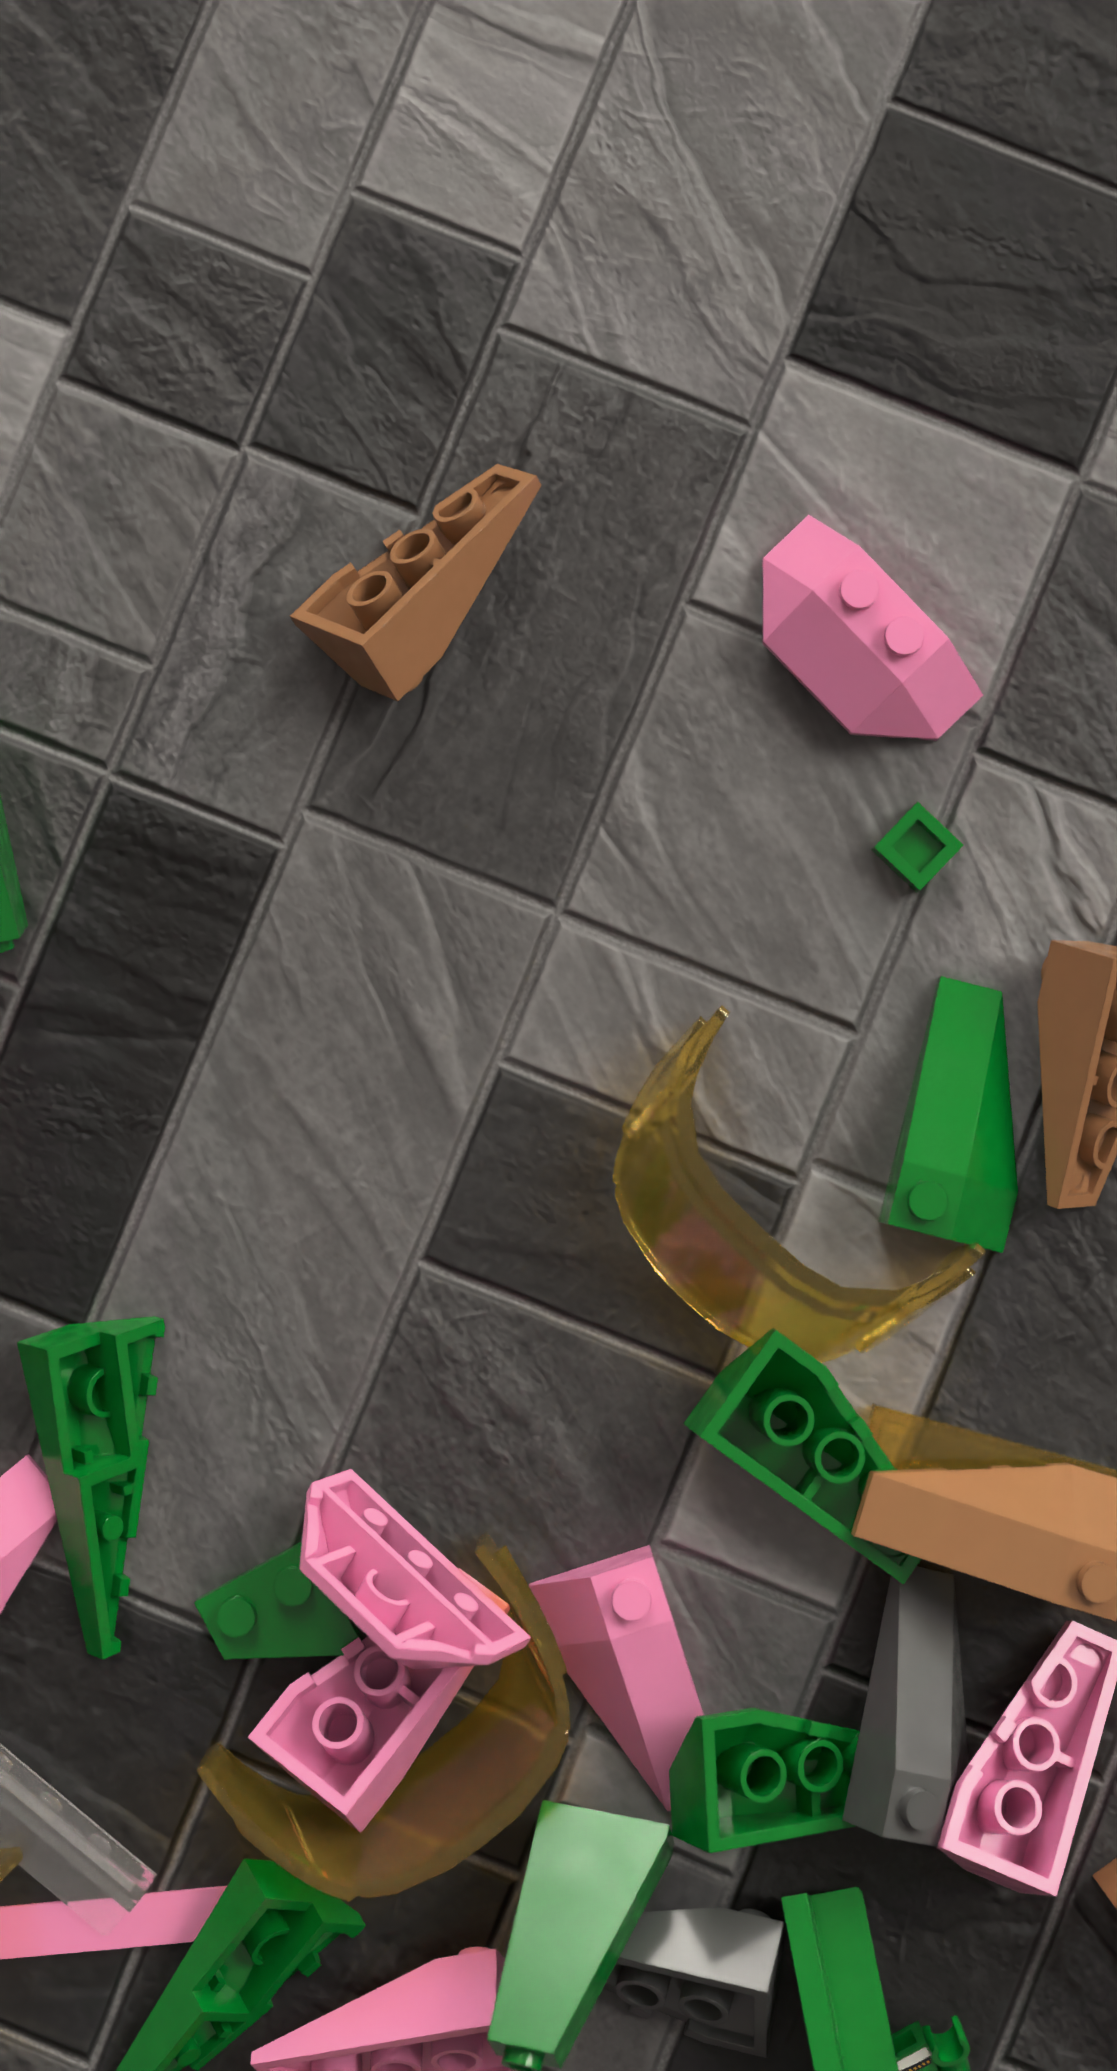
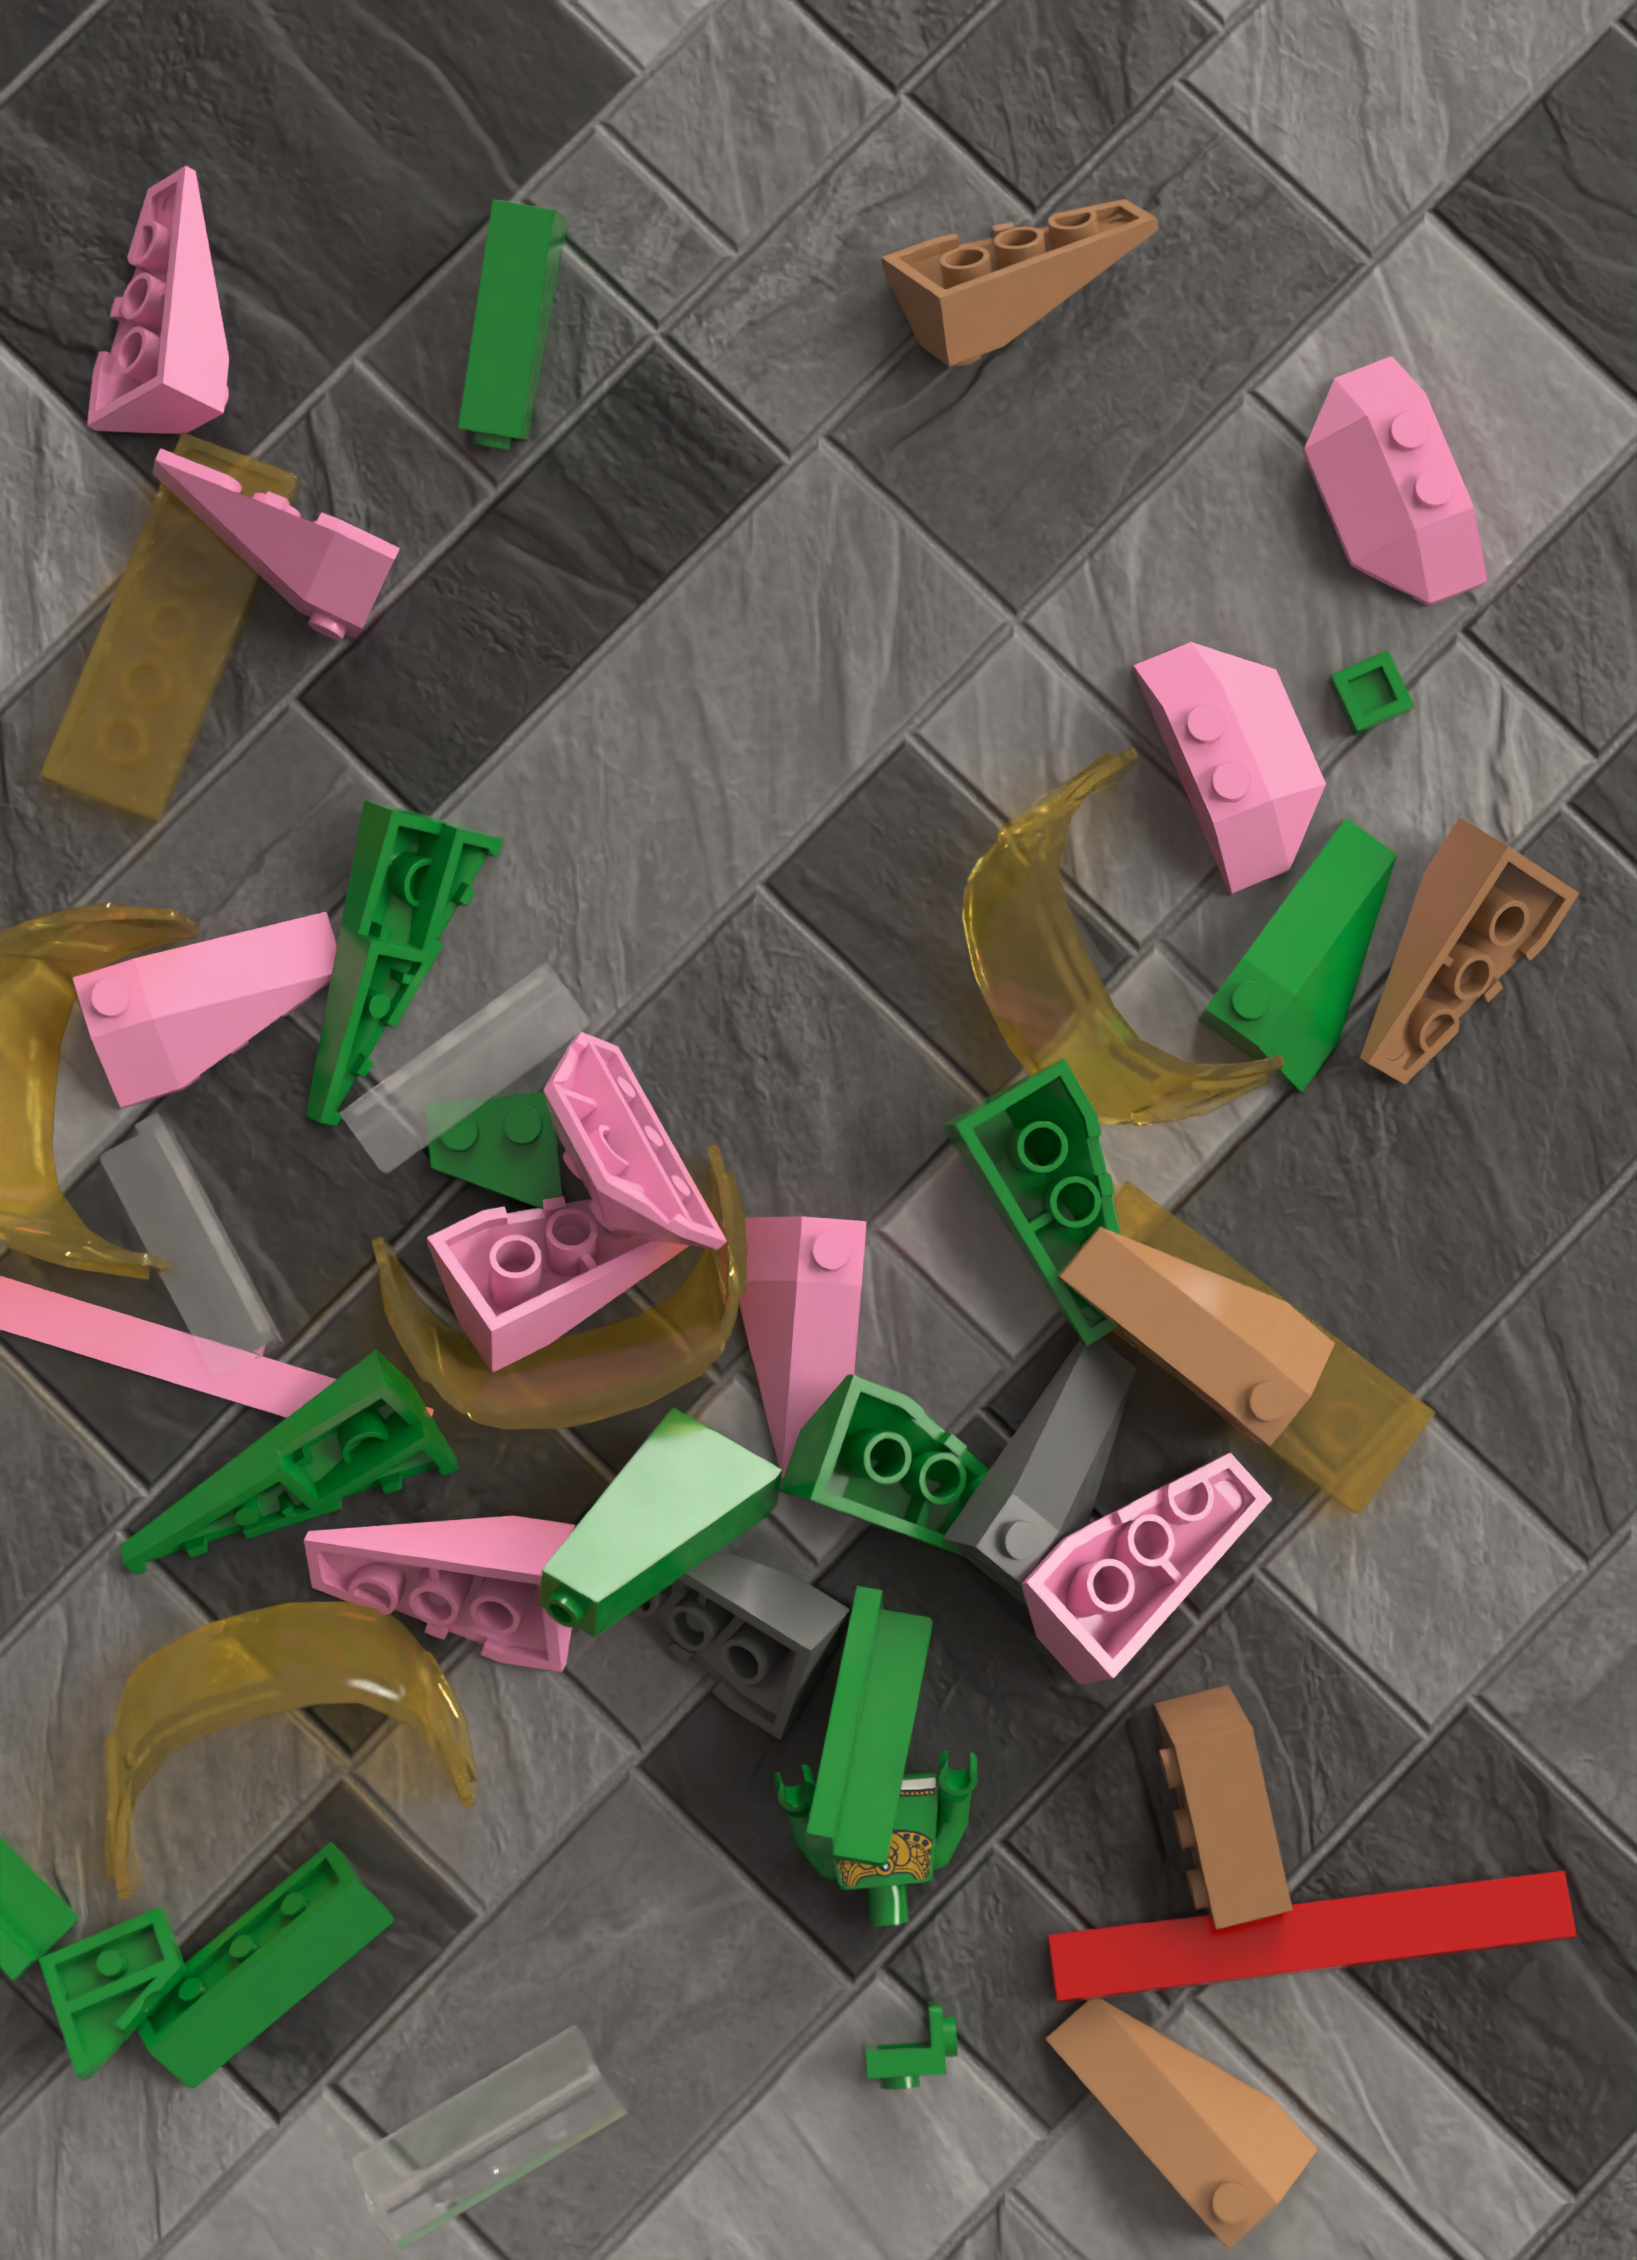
camera: 20 degrees right, 5 degrees down
(218, 1560) = (465, 1069): none -> clear panel
(815, 960) = (1235, 757): none -> bright pink wedge

